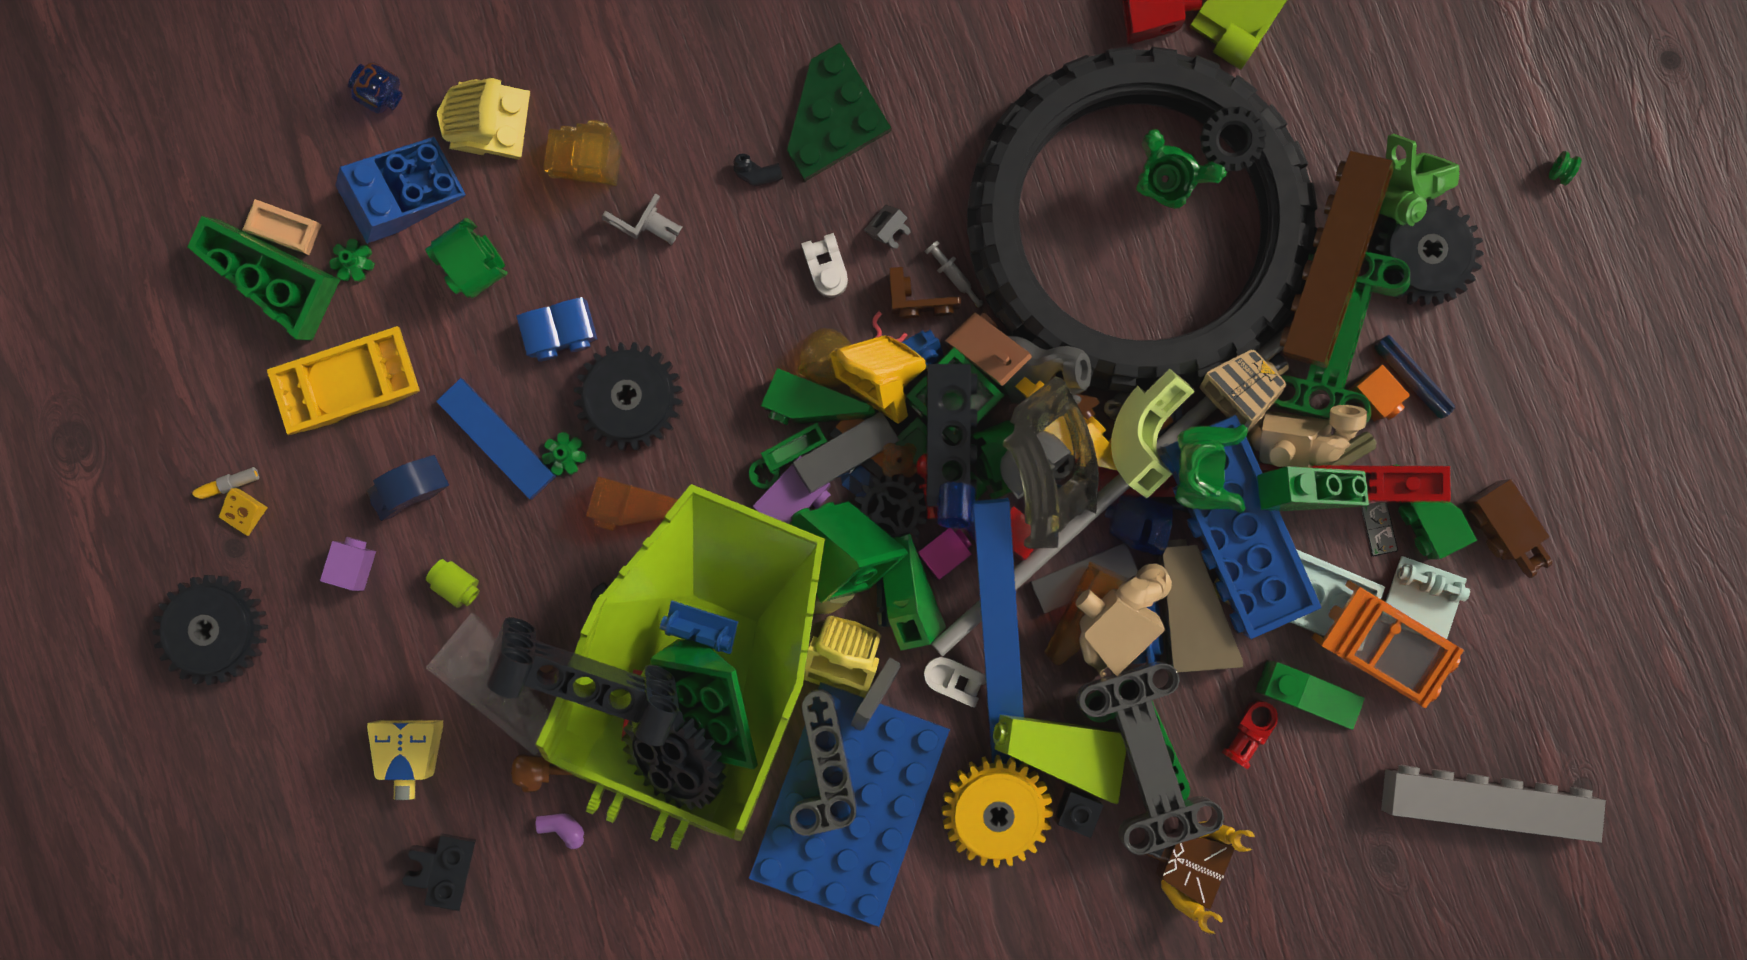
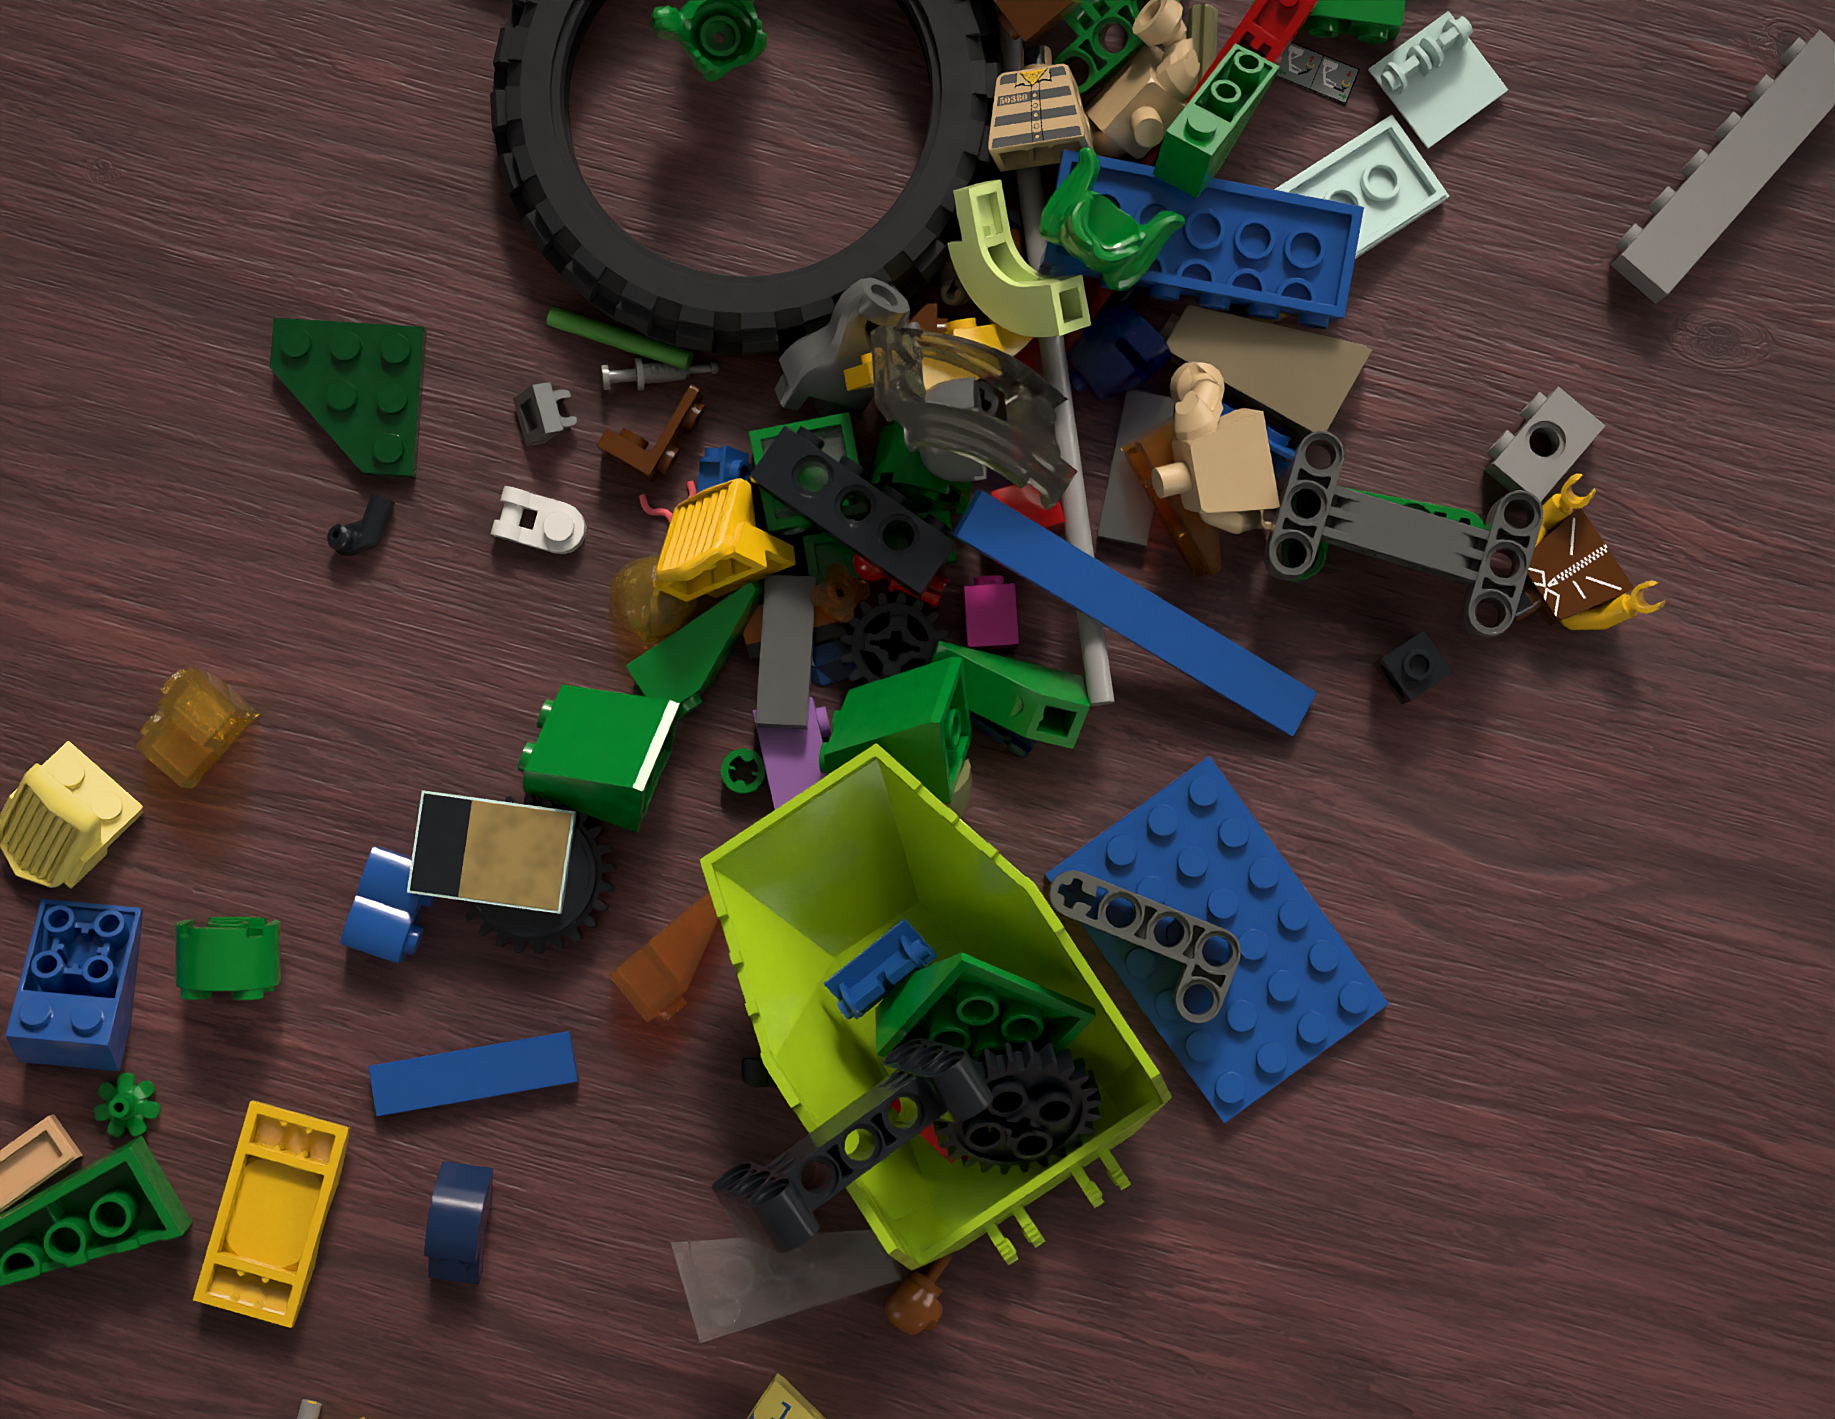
camera: 50 degrees left, 0 degrees up
(348, 564) = (505, 1359): medium lavender brick -> none
(453, 583) = (617, 1245): lime brick -> none
(565, 826) = (1009, 1307): medium lavender arm -> none
(570, 456) = (561, 999): green plant -> none
(622, 364) = (491, 852): none -> pearl gold tile
(649, 221) = (335, 700): light grey bracket -> none
(718, 387) = (600, 753): none -> green slope
(793, 447) = (737, 711): green piece -> none
(843, 656) = (1035, 821): light yellow piece -> none
(875, 694) = (1106, 815): dark grey tile -> none
(943, 673) = (1138, 720): white plate -> none
(957, 507) = (947, 558): clear blue piece -> none
(959, 240) = (619, 338): none -> bright green bar
(988, 347) = (777, 391): nougat door -> none
(998, 787) = (1380, 772): yellow gear -> none
(1070, 752) = (1337, 627): lime slope -> none
(1251, 735) = (1460, 397): red connector -> none
(1274, 810) = (1568, 430): none -> light grey brick
(1309, 694) = (1459, 293): green slope -> none
(1390, 646) = (1466, 157): orange door -> none

